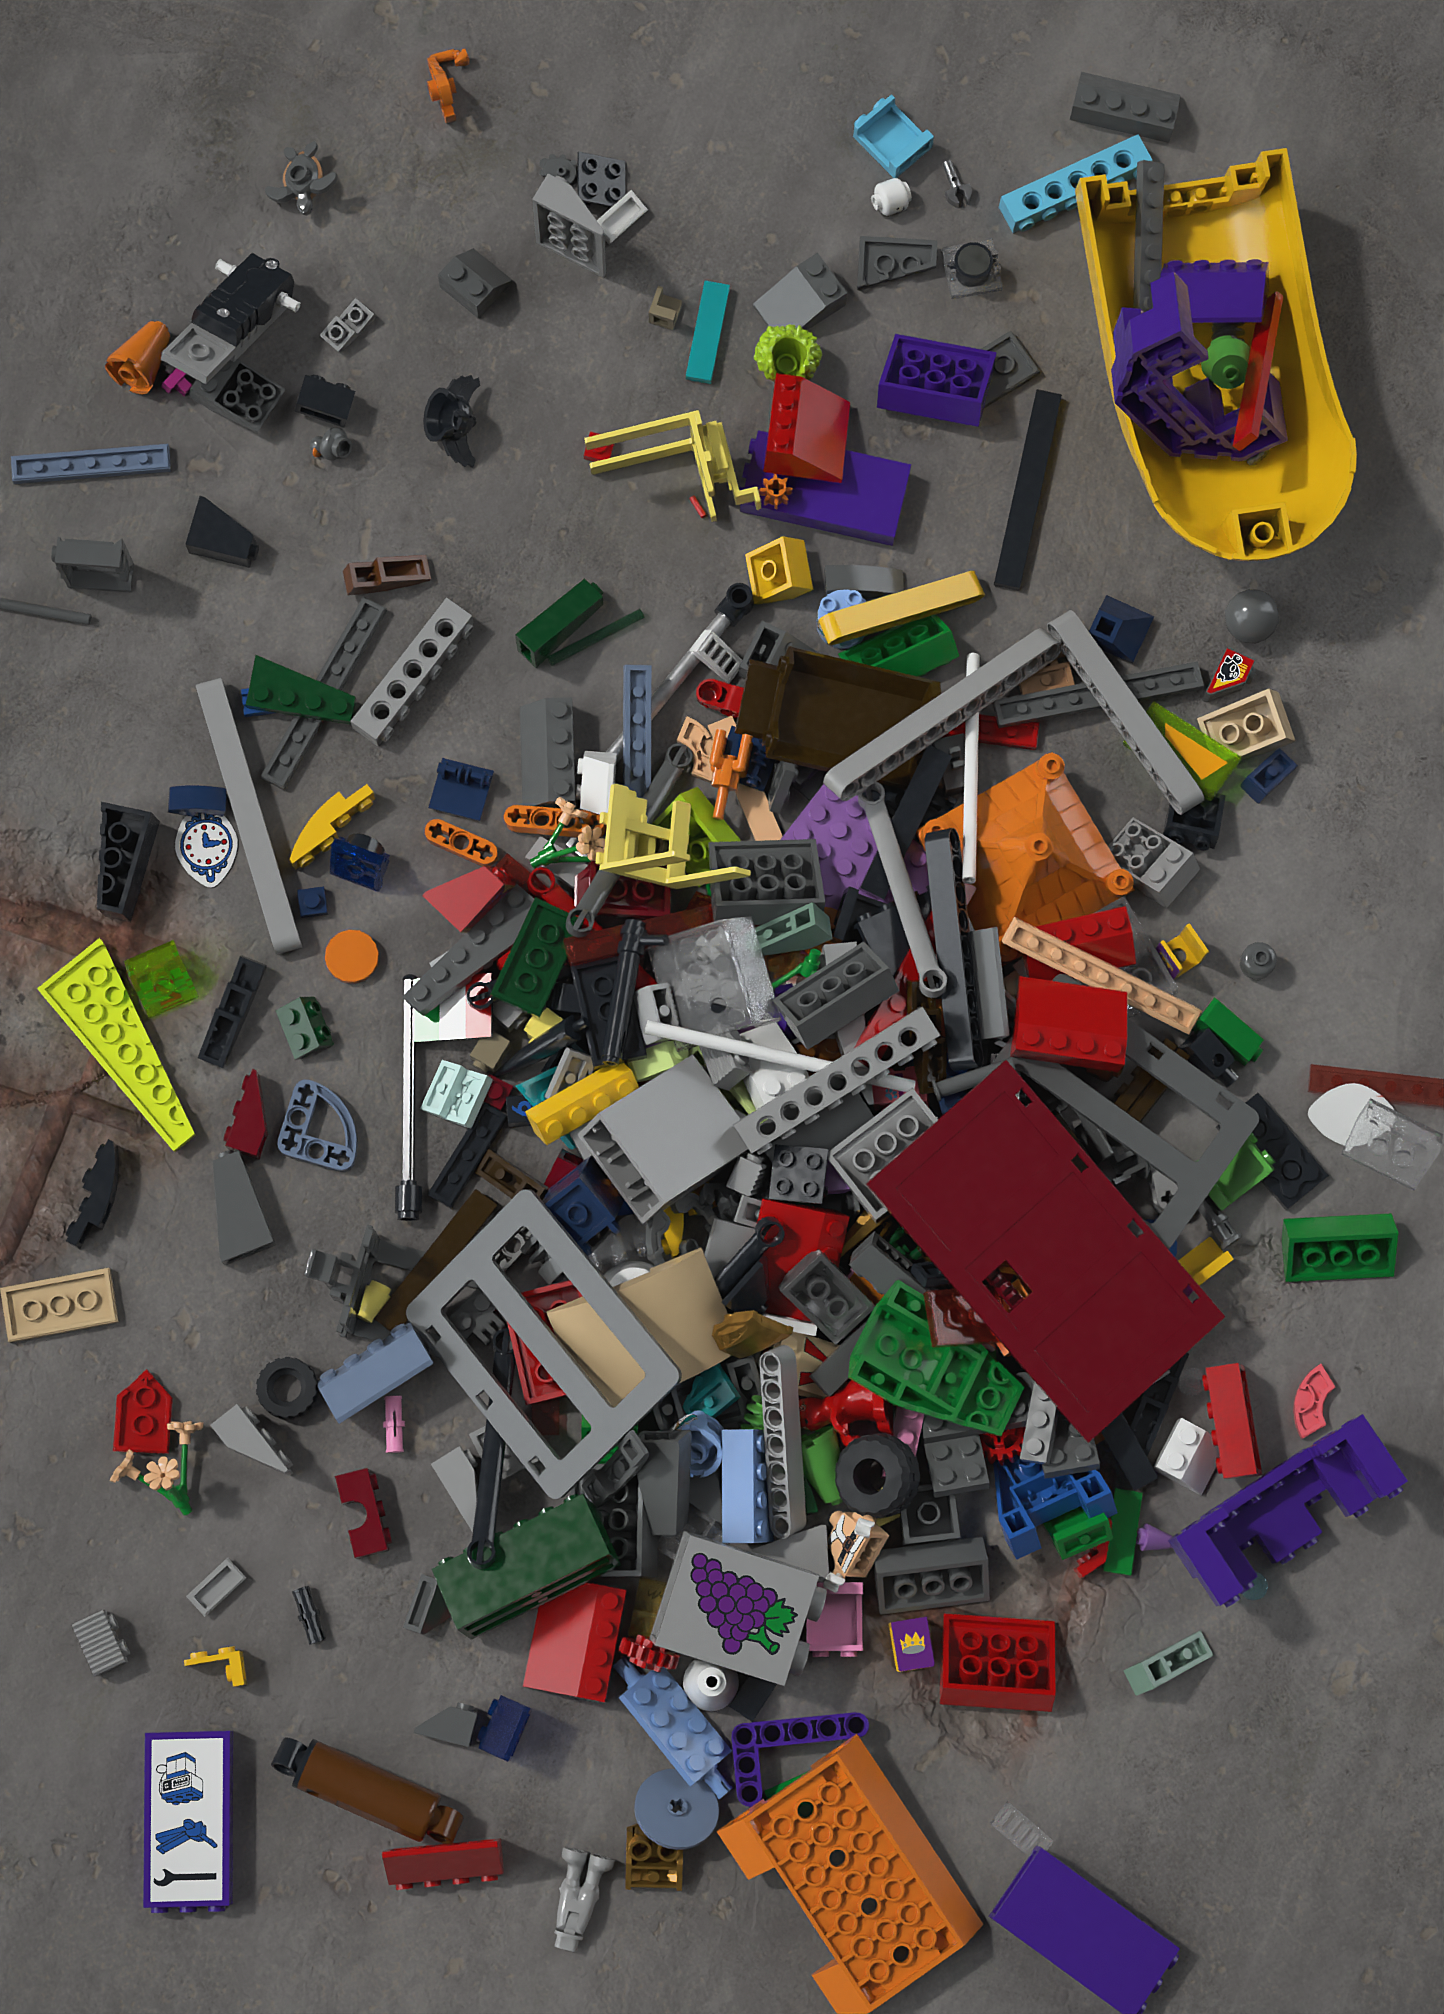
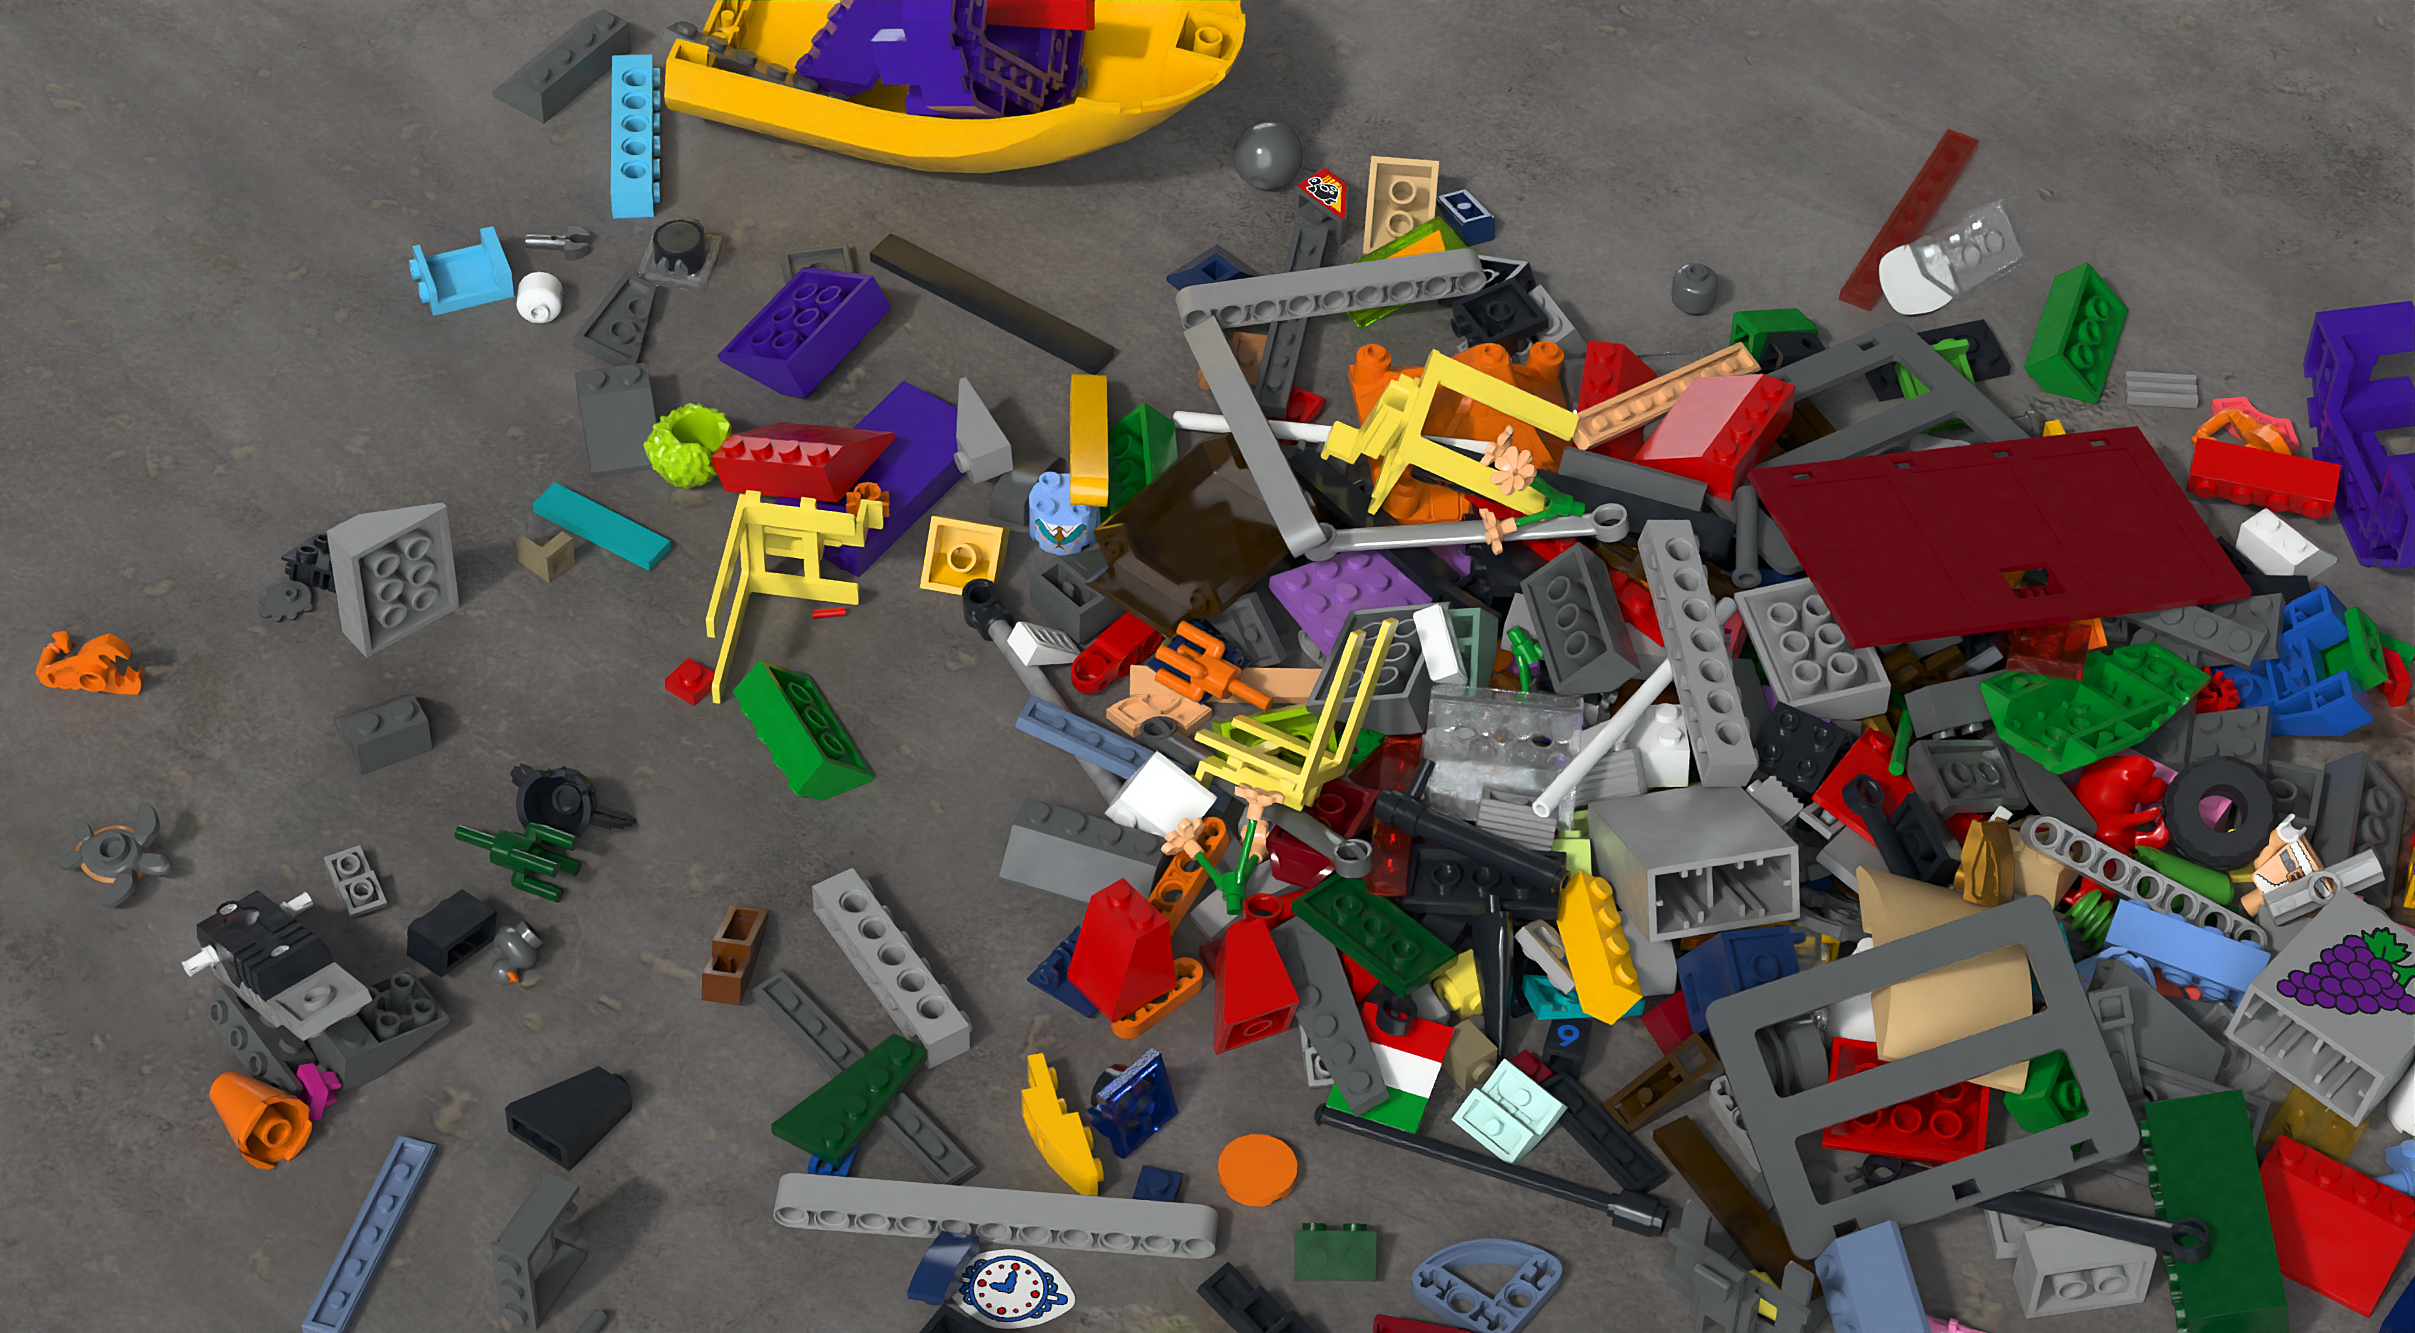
camera: 65 degrees left, 30 degrees down
(404, 414) = (525, 854): none -> dark green plant
(464, 809) = (1122, 952): none -> red slope
(558, 622) = (913, 790): dark green slope -> none
(581, 535) = (801, 732): none -> green slope
(595, 637) = (947, 769): clear green bar -> none
(647, 1655) = (2375, 1137): red gear -> none
(777, 911) = (1440, 646): none -> white slope
(832, 1243) = (1901, 744): none -> green bar
(838, 1563) = (2299, 896): none -> light grey piece
(868, 534) = (980, 442): none -> light grey slope
(899, 905) = (1518, 474): none -> light nougat plant
(953, 781) = (1399, 416): none -> light yellow piece
(1143, 836) = (1498, 316): none -> black plate
(1152, 1538) = (2383, 608): medium lavender cone -> none
(1189, 943) = (1650, 331): yellow piece -> none
(1279, 1411) = (2251, 432): none -> orange animal
(1327, 1321) = (2160, 389): none -> light grey tile

